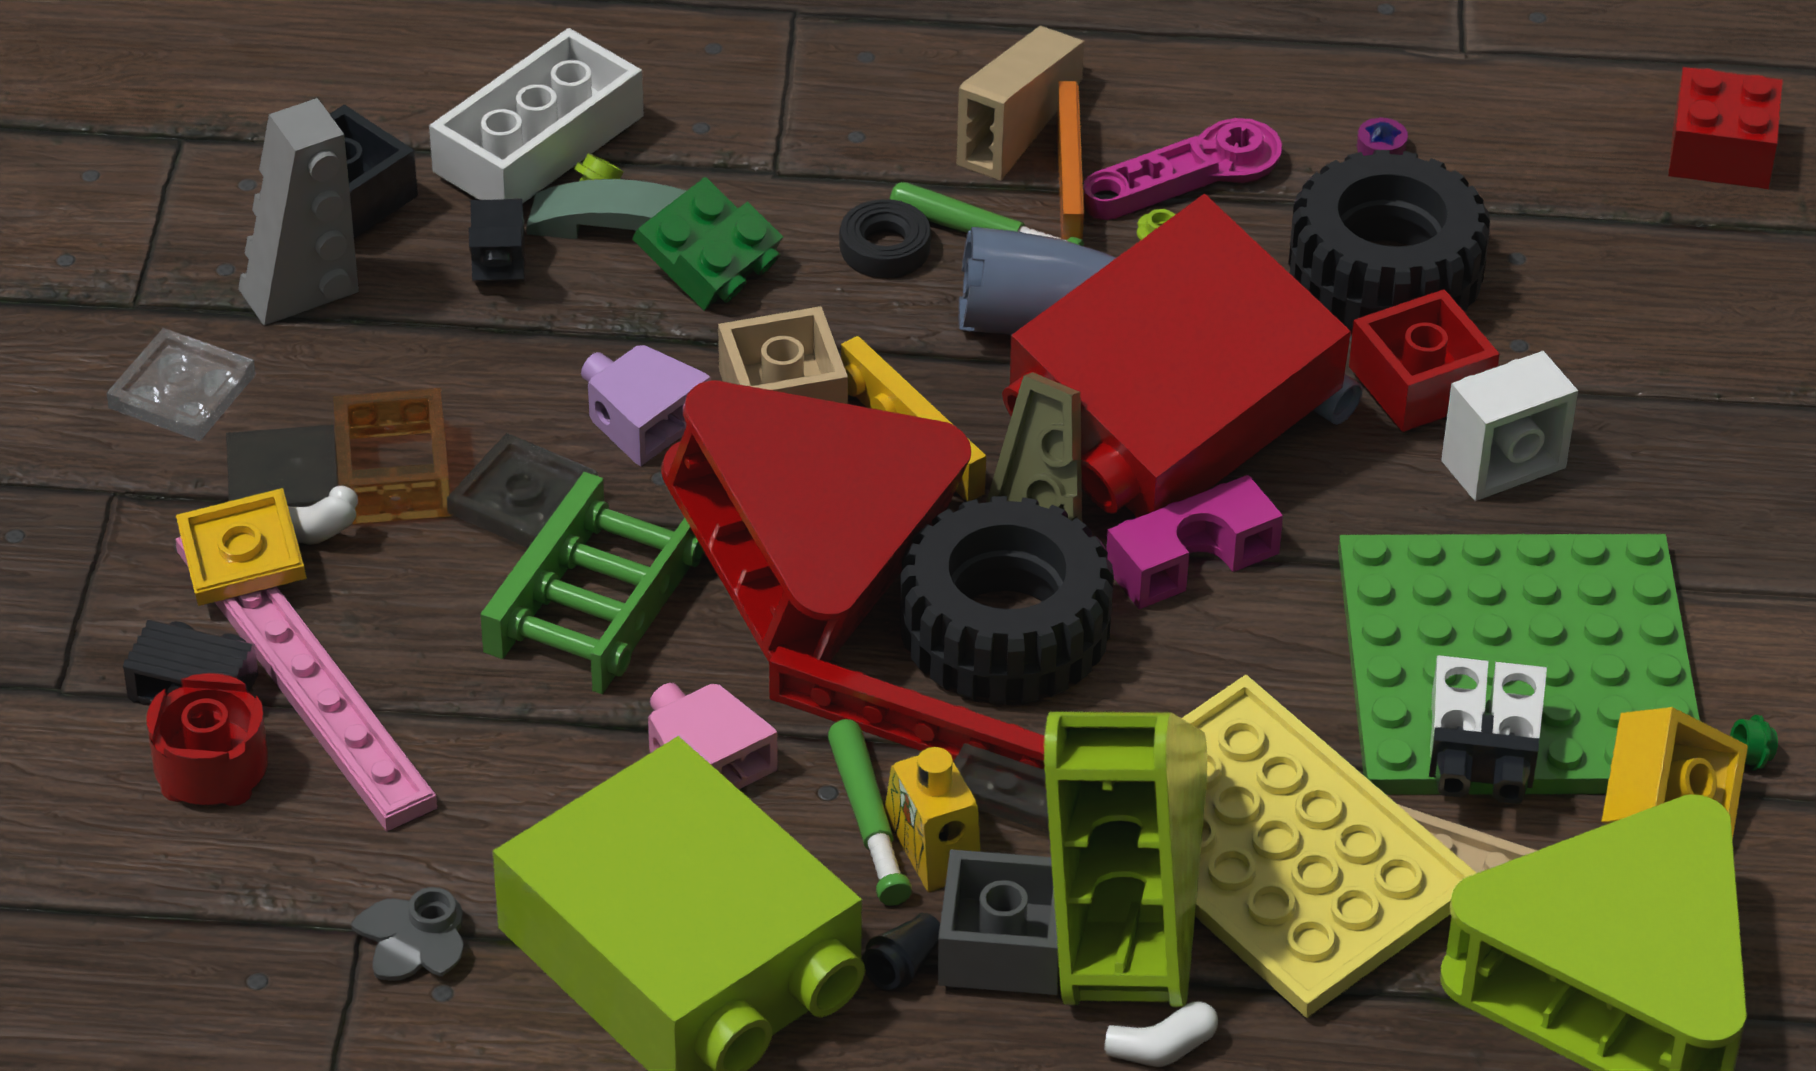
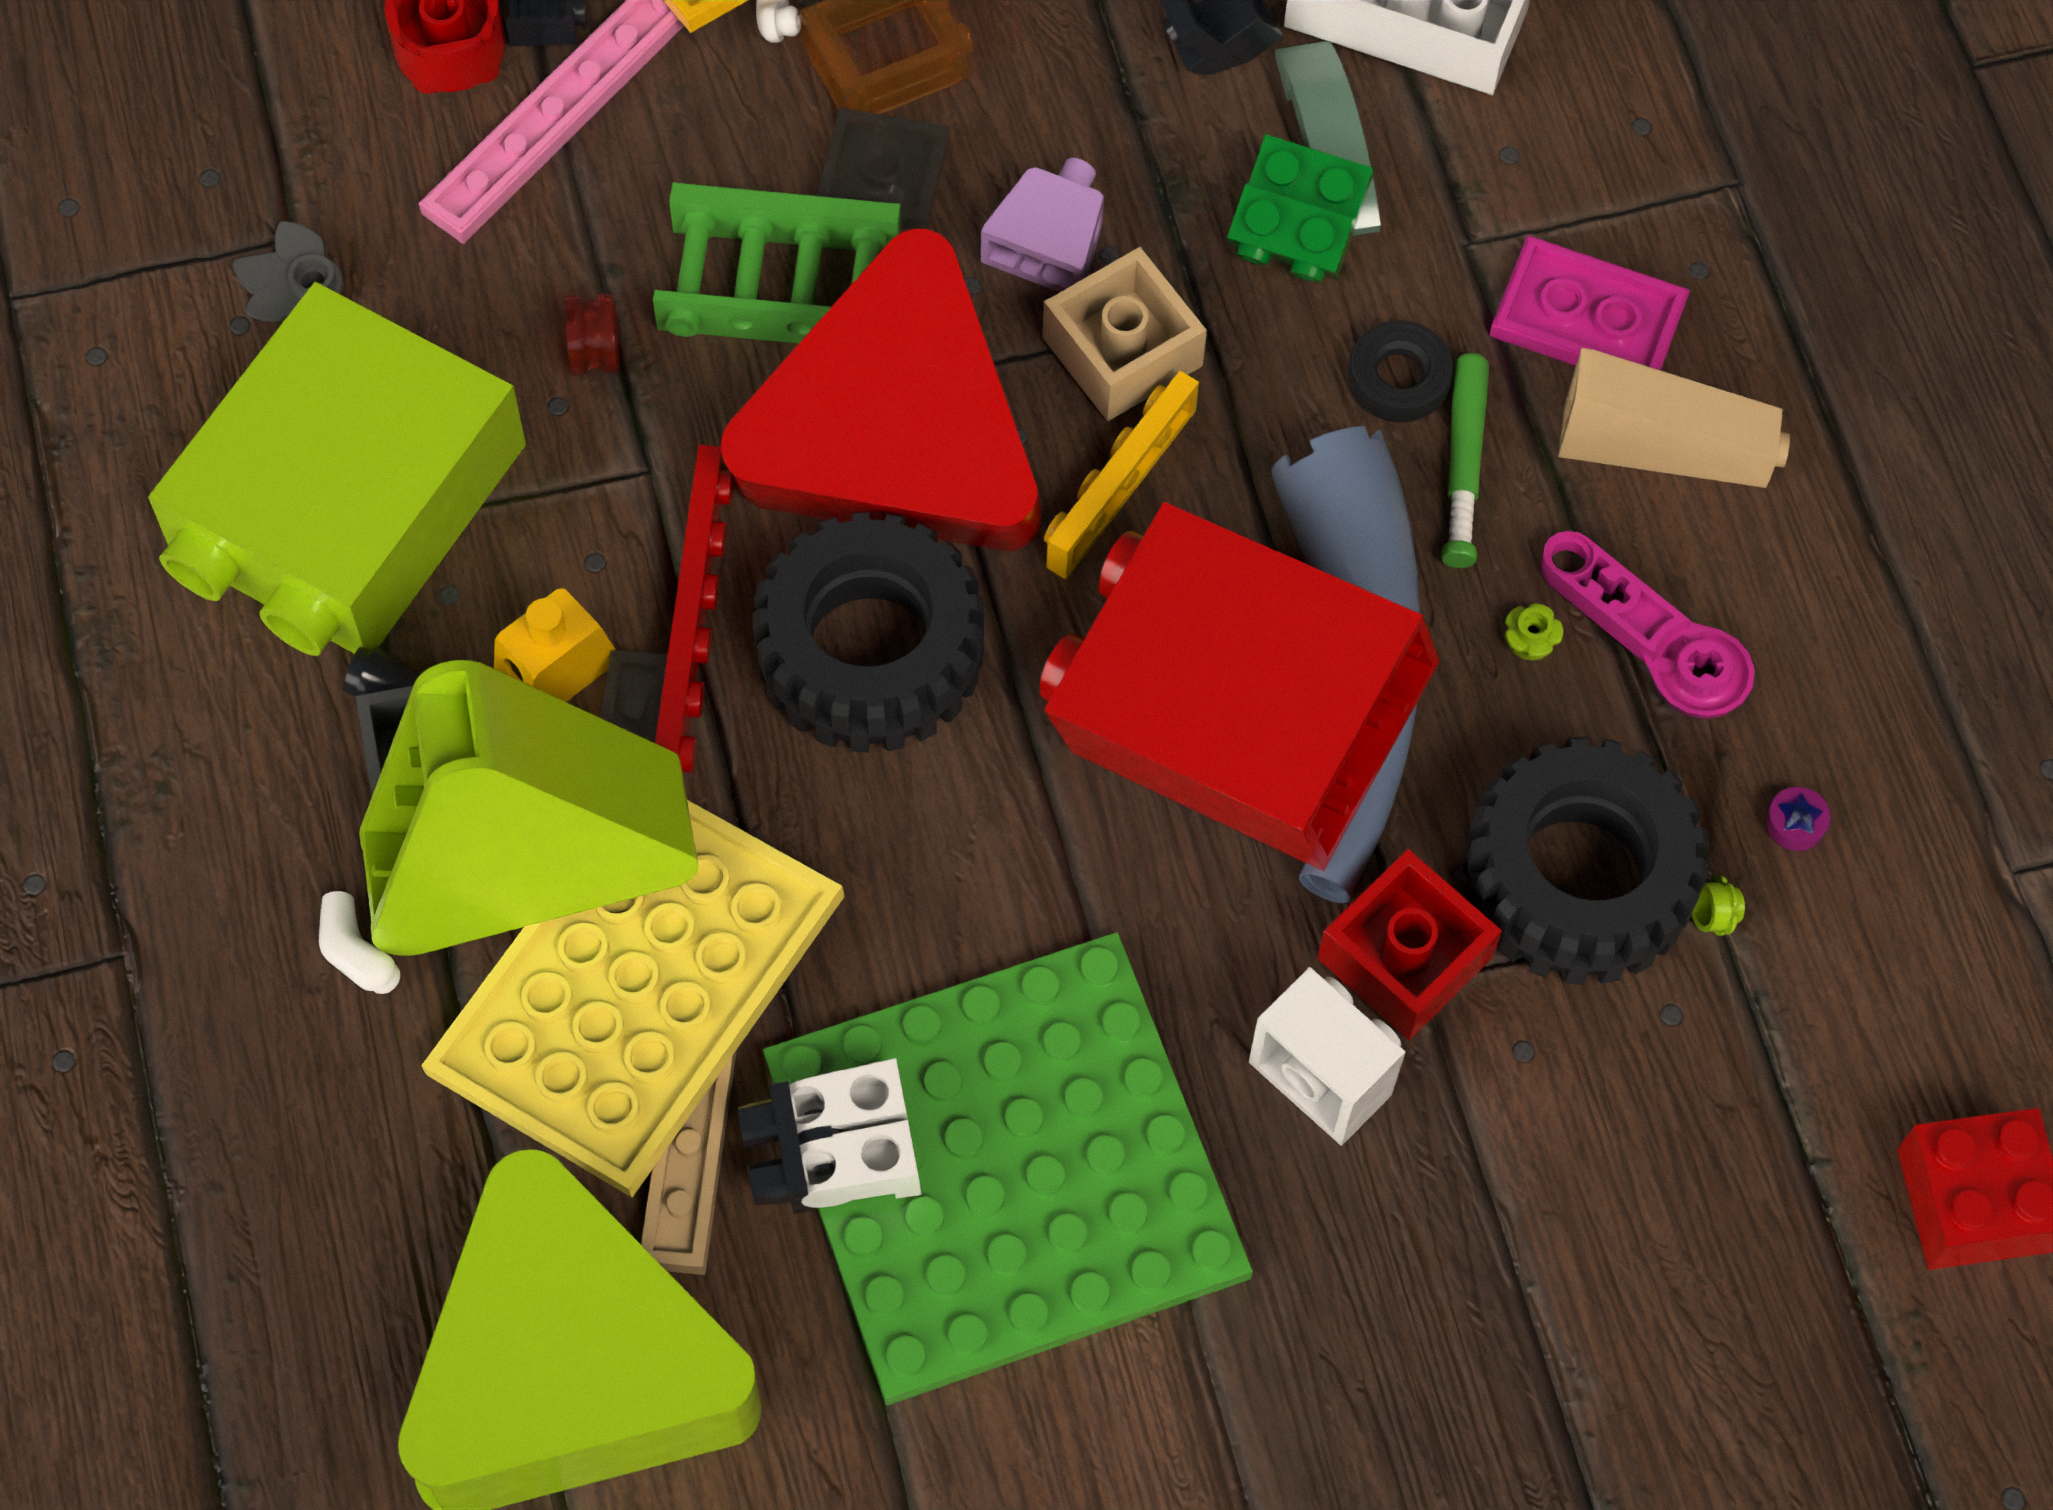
camera: 70 degrees right, 20 degrees up
(597, 168) = (1372, 83): lime plate -> none
(606, 716) = (592, 334): none -> clear red wheel
(717, 728) = (595, 430): bright pink torso -> none
(867, 805) = (592, 587): bright green piece -> none
(878, 122) = (1578, 301): none -> dark pink tile
(1042, 448) = (1045, 606): olive wing -> none
(1070, 160) = (1587, 508): orange tile -> none
(1227, 521) = (1014, 752): dark pink arch -> none
(1670, 756) = (835, 1357): yellow slope -> none
(1759, 737) = (958, 1435): green plate -> none

